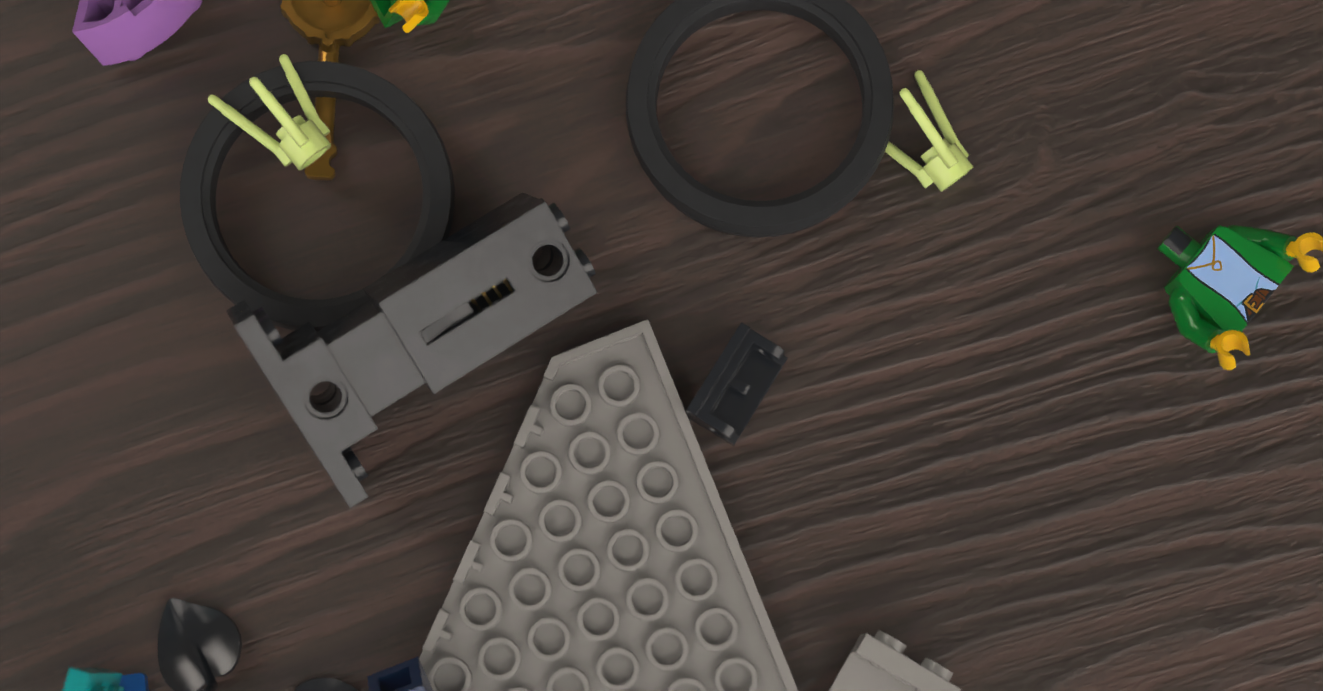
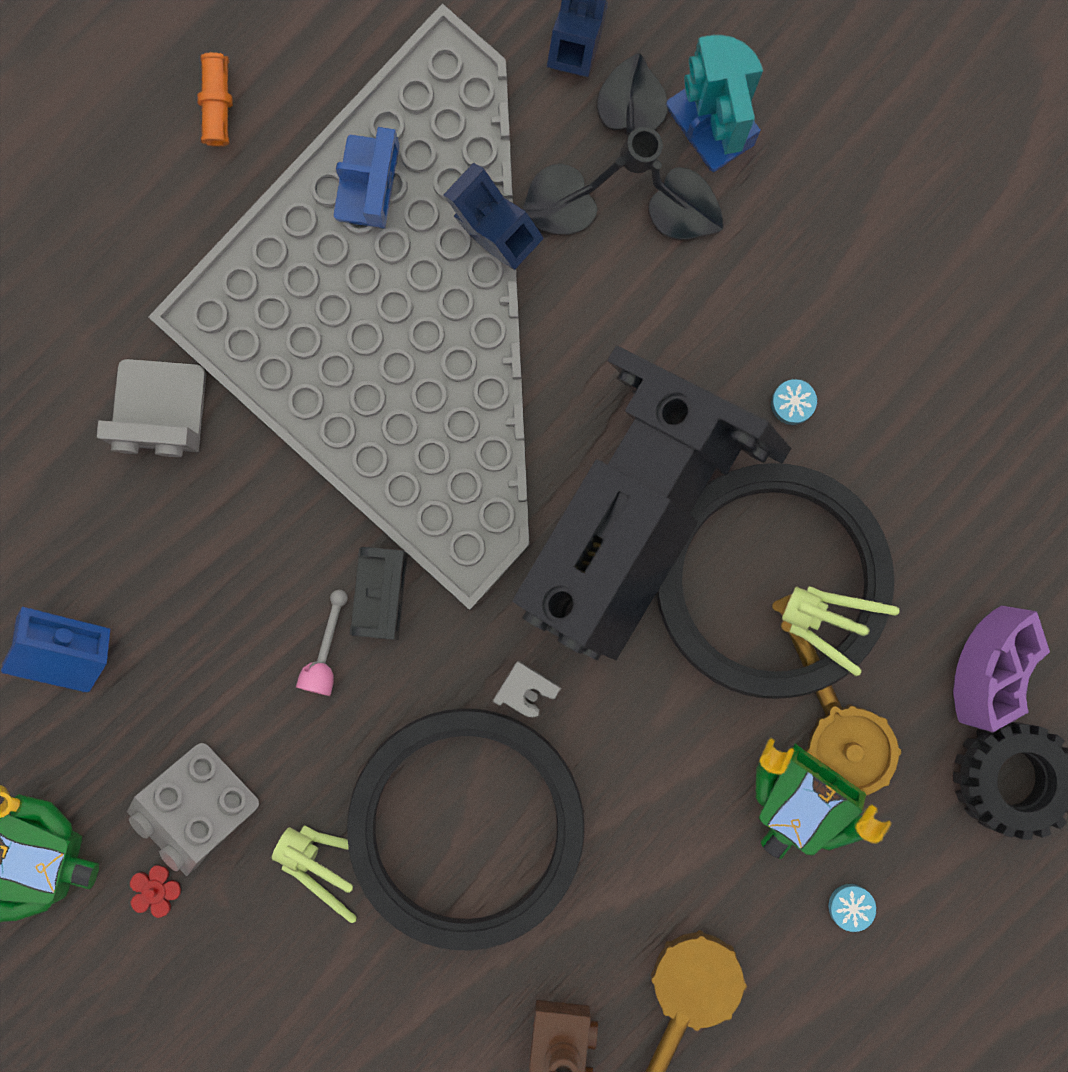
camera: 160 degrees right, 5 degrees up
(197, 375) = (793, 402): none -> medium azure tile
(633, 210) = (518, 686): none -> light grey hinge
(841, 330) = (317, 676): none -> hinge
(1033, 256) = (191, 808): none -> light grey bracket
(1104, 485) = (57, 650): none -> blue panel
(1111, 196) = (154, 891): none -> red plant

